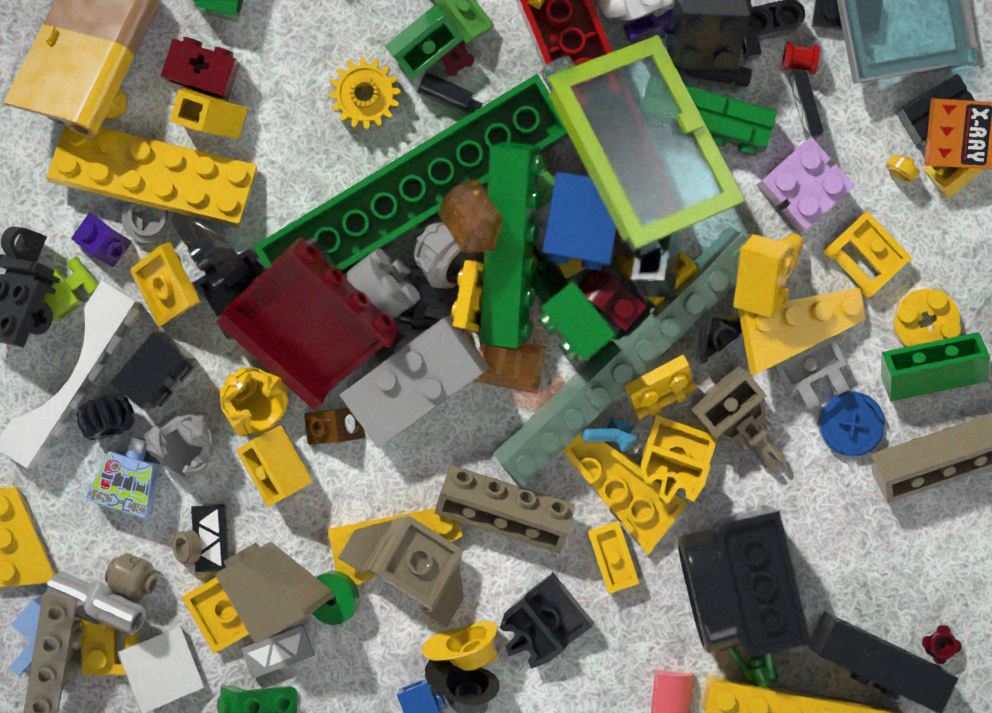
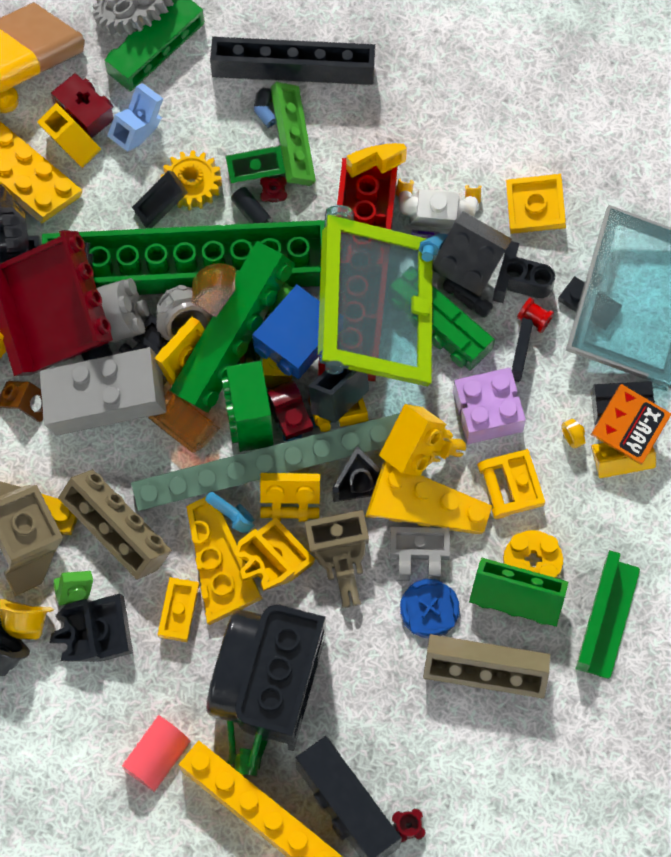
camera: 25 degrees right, 20 degrees down
(269, 56) = (137, 122): none -> light blue brick
(347, 136) = (159, 199): none -> black tile
(500, 593) = (73, 586): none -> bright green bracket
(664, 45) = (432, 246): none -> dark azure bar

